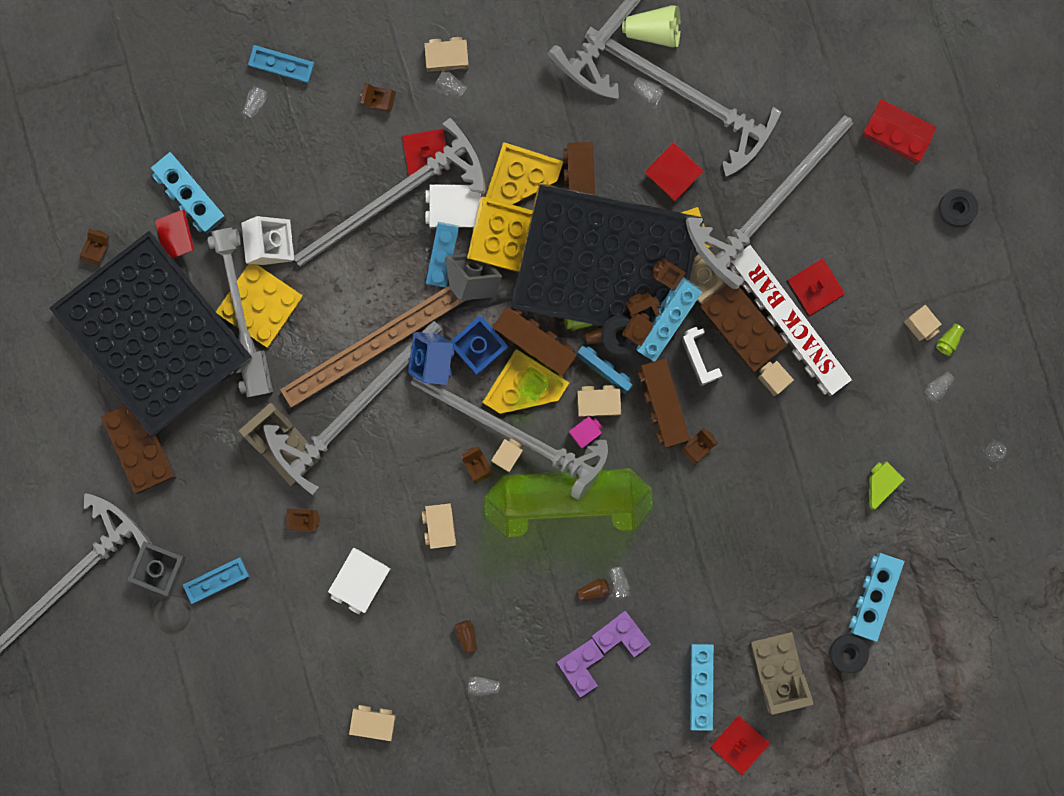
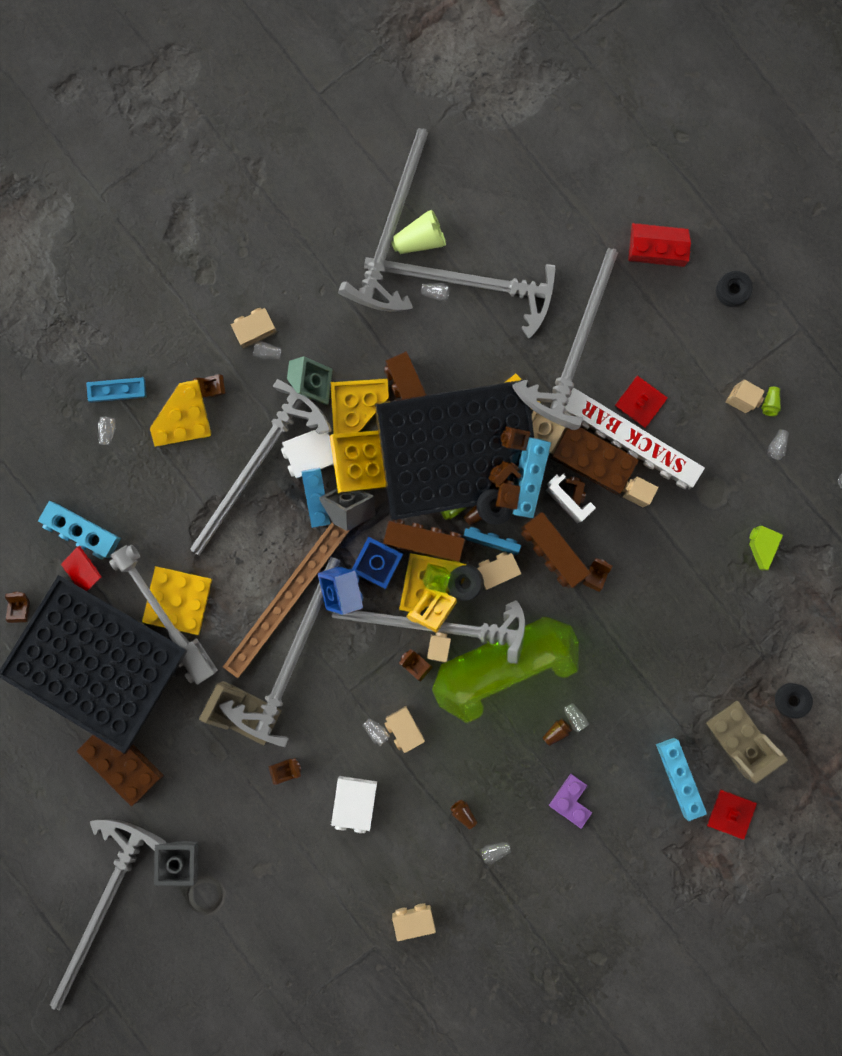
camera: 25 degrees left, 0 degrees up
(216, 580) = (231, 852): dark azure plate -> none
(267, 240) = (162, 544): white slope -> none
(337, 118) = (182, 416): none -> yellow plate
(410, 518) = (376, 732): none -> clear cone
(421, 146) = (263, 413): red piece -> none
(484, 131) = (310, 379): none -> sand green slope
(518, 418) = (436, 612): none -> yellow plate
(572, 400) = (475, 588): none -> black tyre
(586, 431) = (497, 600): dark pink brick -> none
(624, 630) = (593, 756): medium lavender plate -> none
(674, 171) = (484, 350): red piece -> none
(712, 357) = (578, 494): none -> reddish brown bracket
(893, 568) = (805, 672): medium azure brick -> none

